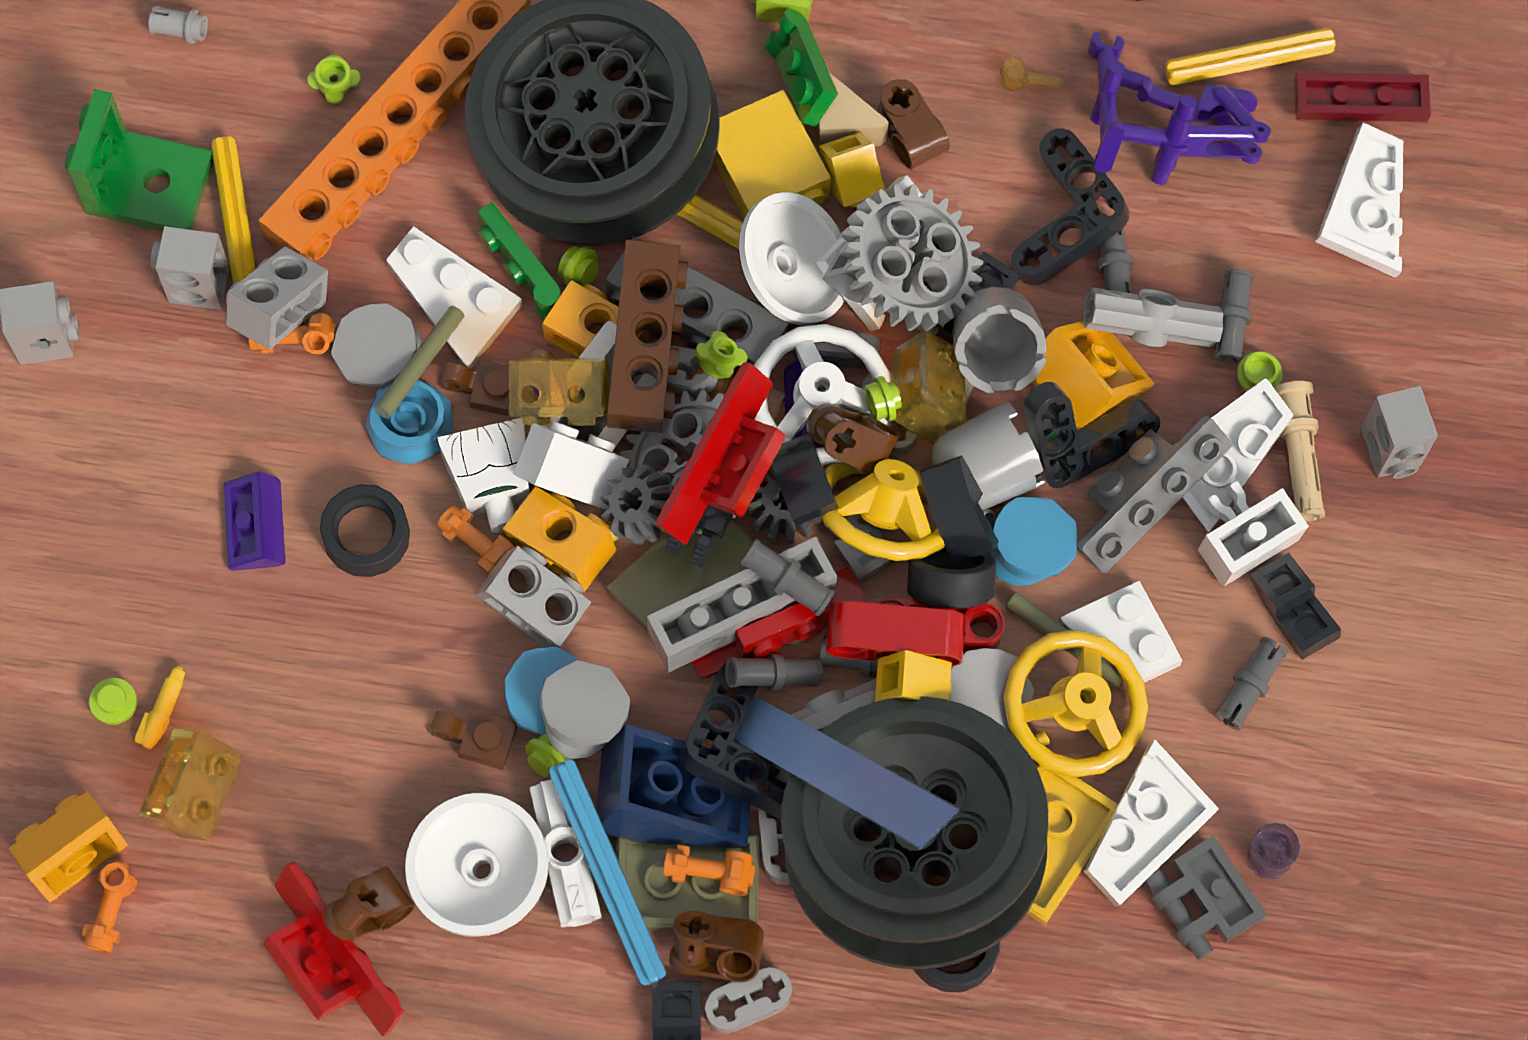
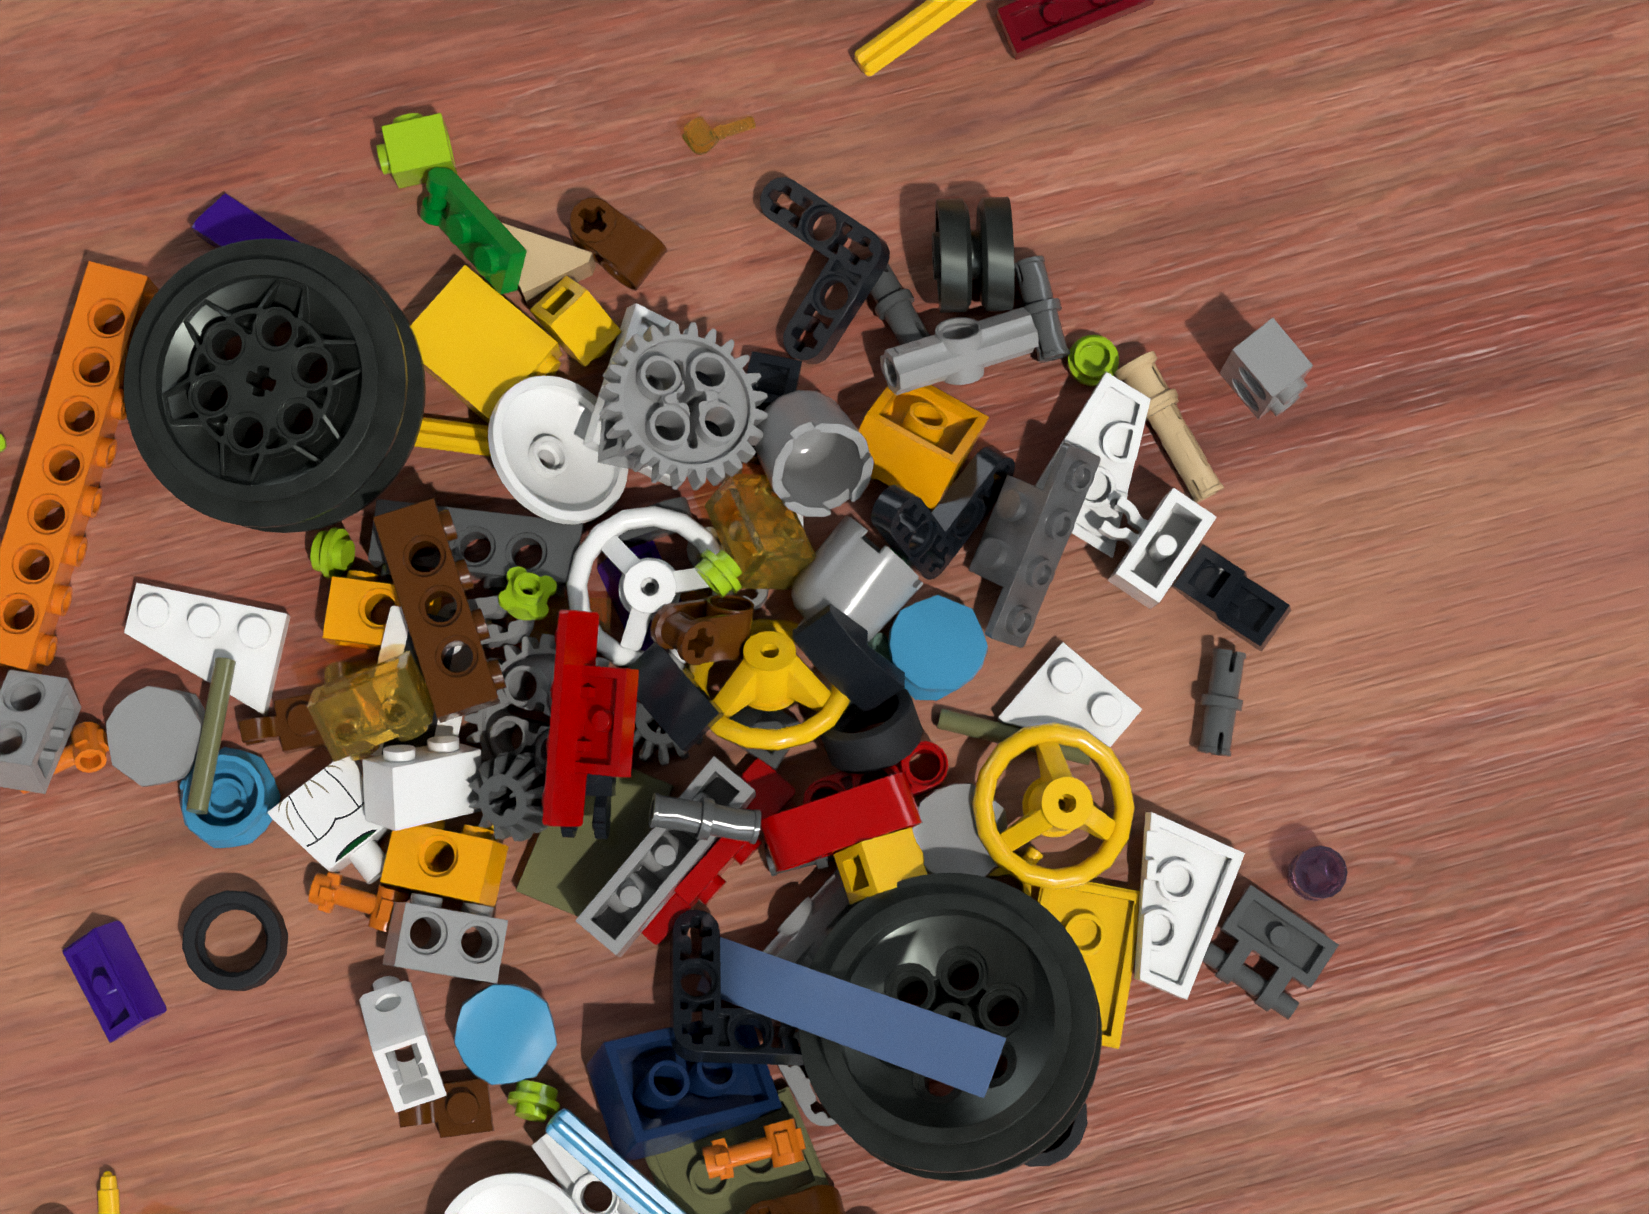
camera: 20 degrees left, 10 degrees up
(462, 646) = (393, 1023): none -> white torso
(519, 260) = (269, 576): green plate -> none
(583, 708) = (550, 1042): light grey hat -> none
(773, 671) = (729, 909): dark grey pin -> none
(1180, 135) = (906, 138): dark purple piece -> none
(1195, 246) = (973, 254): none -> pearl dark grey wheel
(1365, 202) = (1126, 123): white wing -> none

